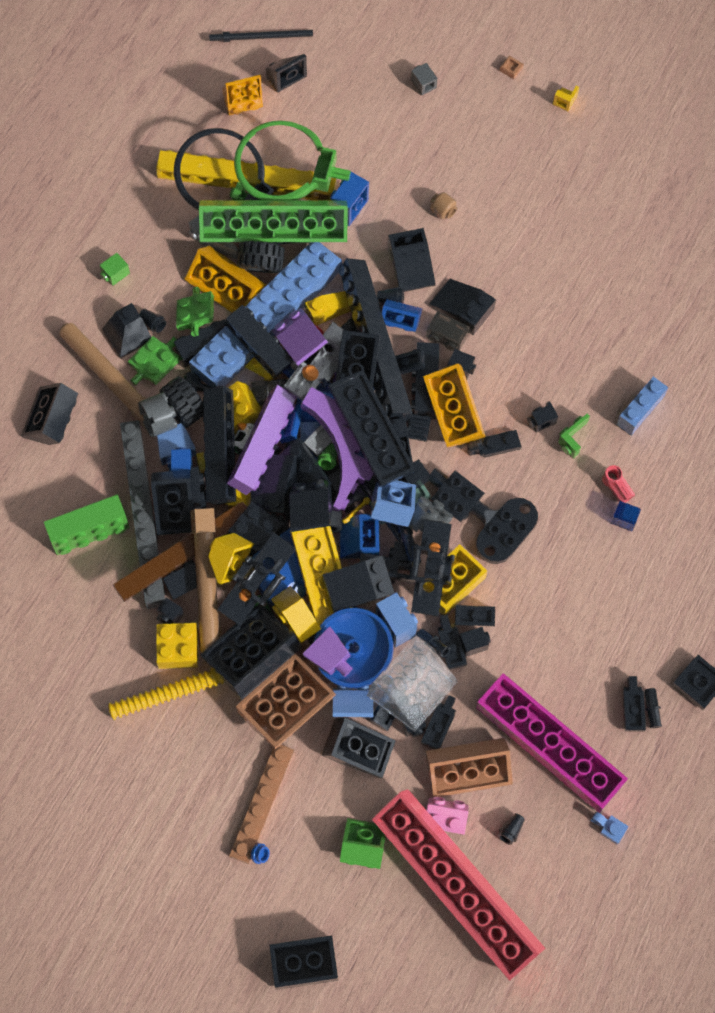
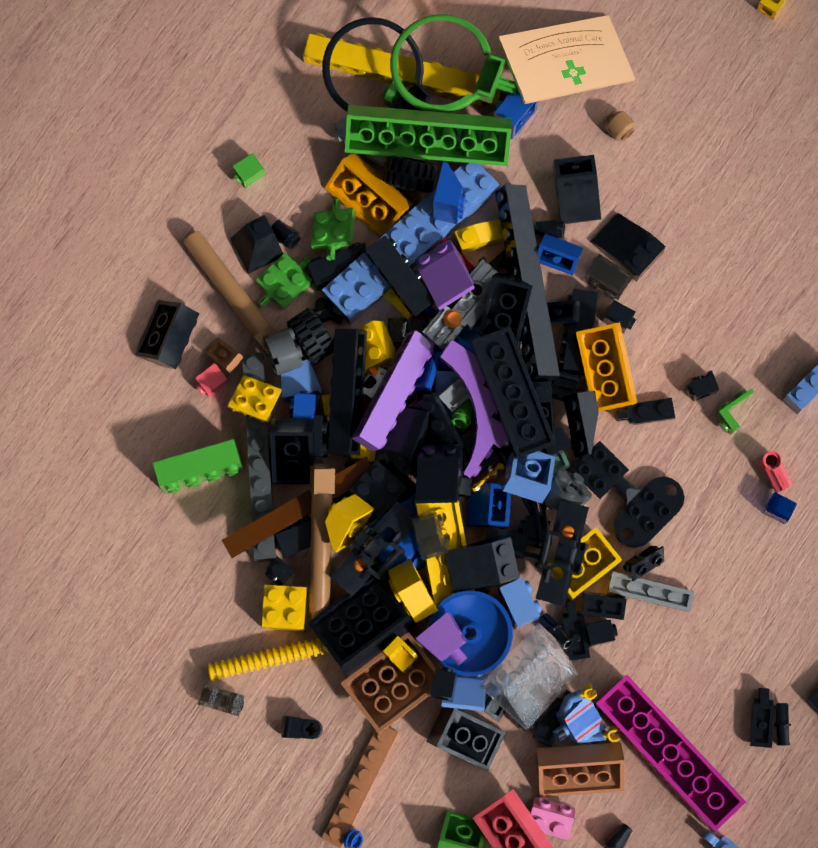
camera: 10 degrees right, 10 degrees up
(93, 451) = (211, 381): none -> coral brick
(103, 426) = (224, 355): none -> nougat plate
(123, 735) = (221, 700): none -> clear smoke brick
(134, 458) = (254, 398): none -> yellow hinge
(197, 754) = (297, 728): none -> black piece
(289, 672) = (400, 653): none -> yellow panel
(297, 267) = (449, 197): none -> blue slope
(306, 559) = (429, 535): none -> clear smoke brick
(333, 694) = (444, 684): none -> black brick
(389, 152) = (566, 59): none -> light nougat piece
(437, 452) = (582, 420): none -> black slope
(464, 718) = (581, 720): none -> torso
(508, 574) = (651, 558): none -> black hinge
(517, 600) = (651, 592): none -> light grey plate

